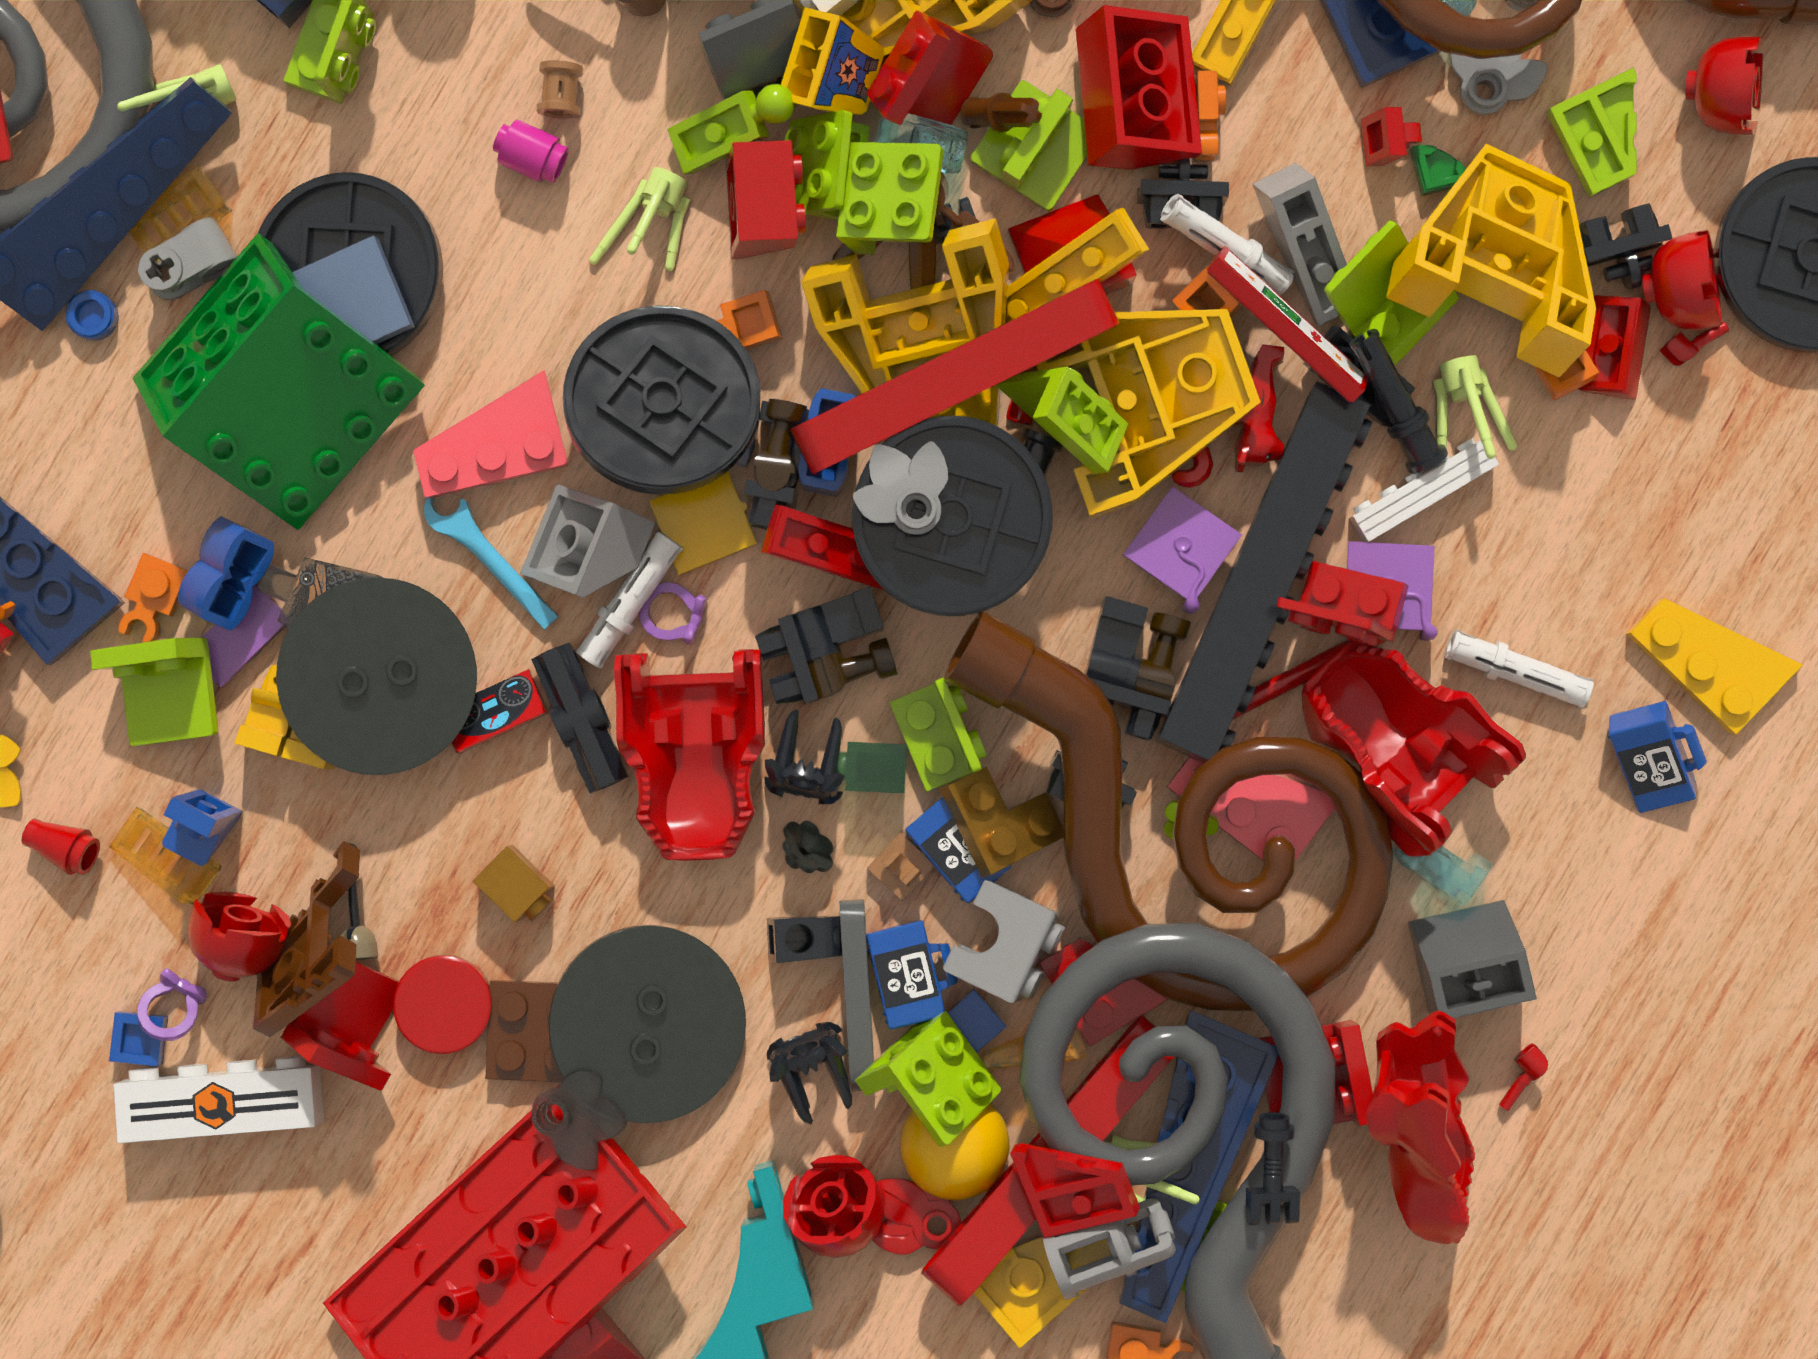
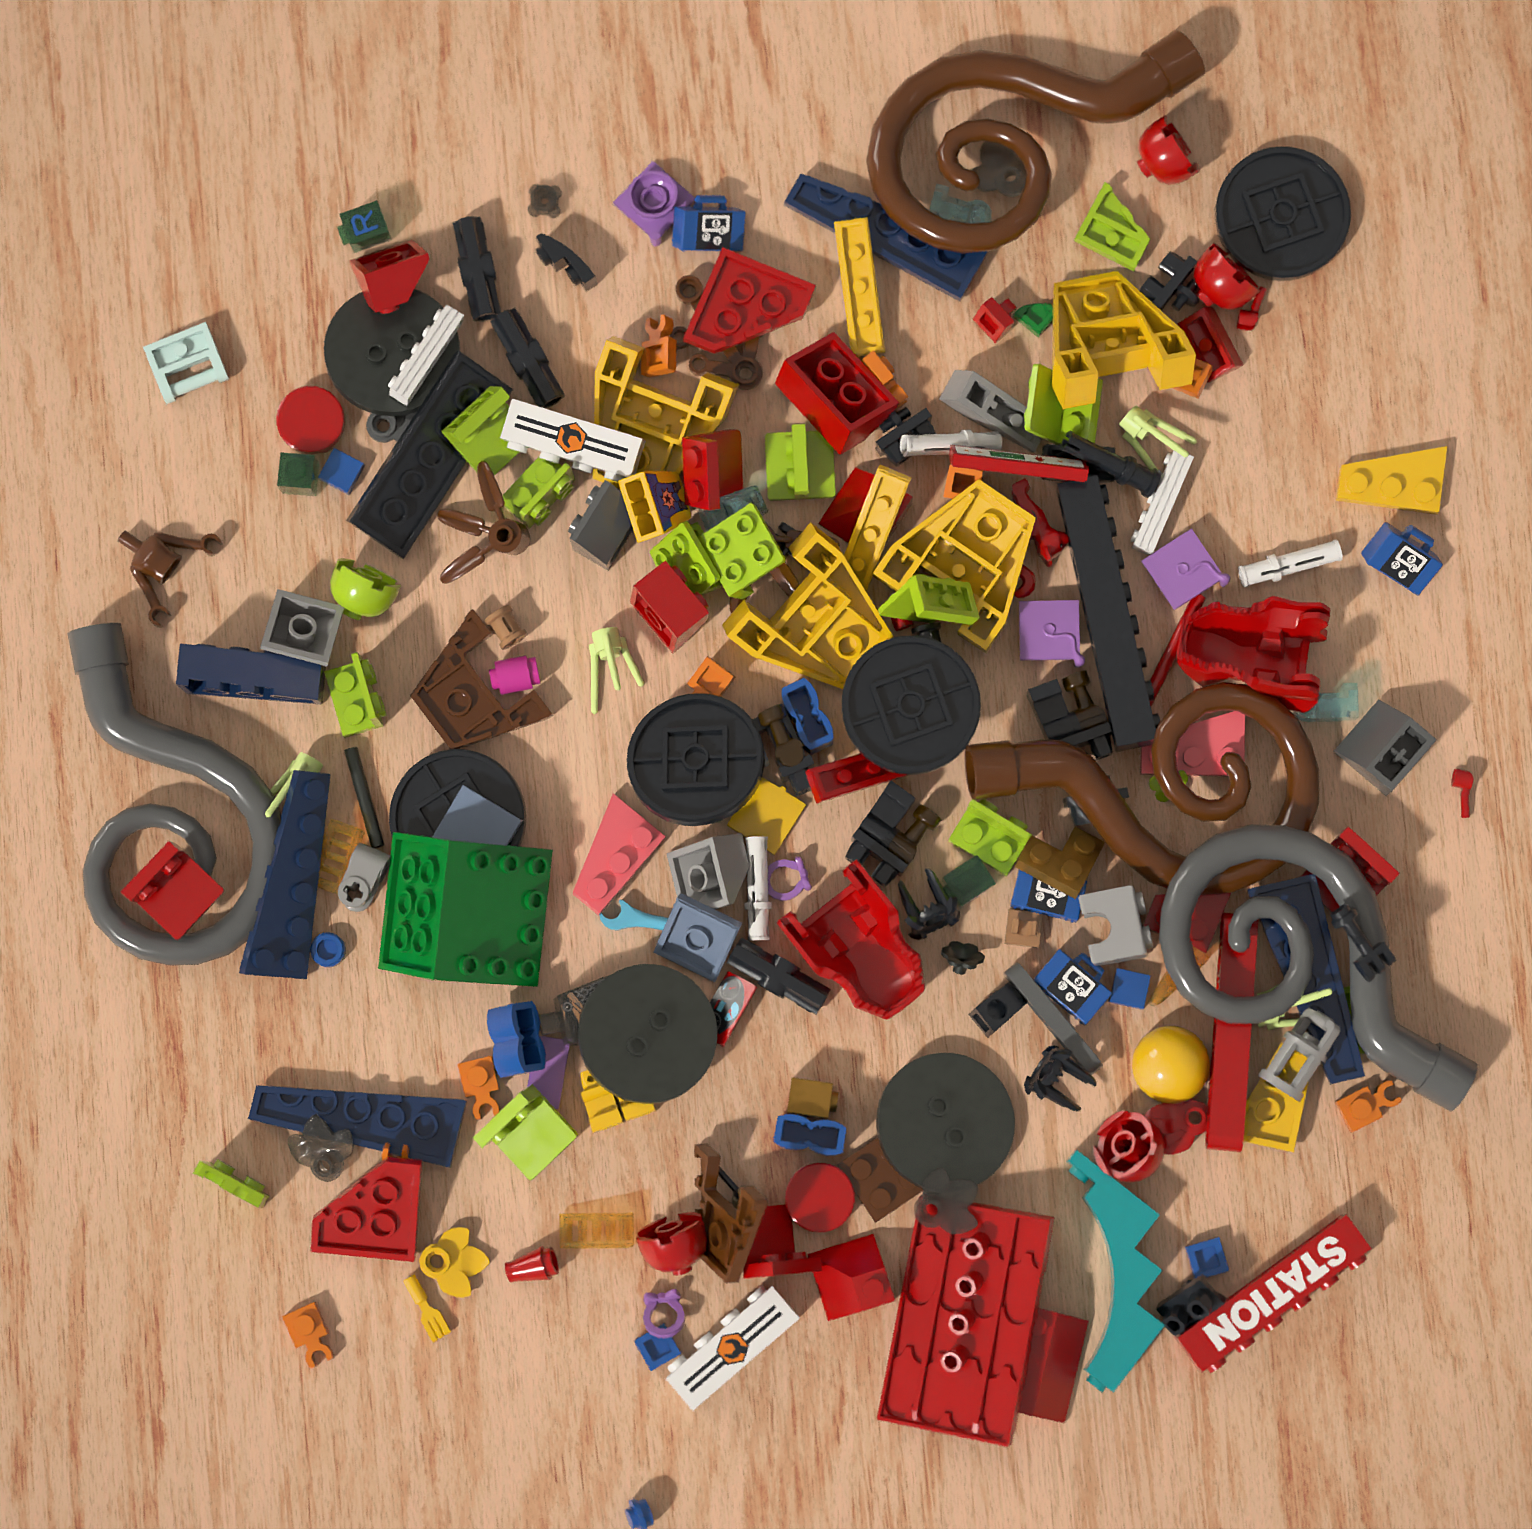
camera: 30 degrees left, 5 degrees down
(198, 825) = (606, 1197): blue slope -> none
(258, 170) = (364, 797): none -> pearl dark grey bar
(414, 1123) = (852, 1278): none -> red slope
(445, 137) = (461, 703): none -> reddish brown wing
(472, 916) = (820, 1136): none -> blue brick
(518, 606) = (697, 937): none -> sand blue tile
(740, 118) = (619, 577): lime plate -> none
(900, 481) = (870, 703): light grey plate -> none
(936, 1077) = (1132, 1028): lime bracket -> none
(955, 376) = (854, 626): red beam -> none
(1000, 112) = (768, 460): reddish brown axle -> none
(1073, 1189) = (1256, 1034): red wing -> none
(1351, 601) = (1166, 594): red bracket -> none
(1419, 1118) = (1421, 854): red animal -> none
(1505, 76) = (1038, 238): light grey plate -> none

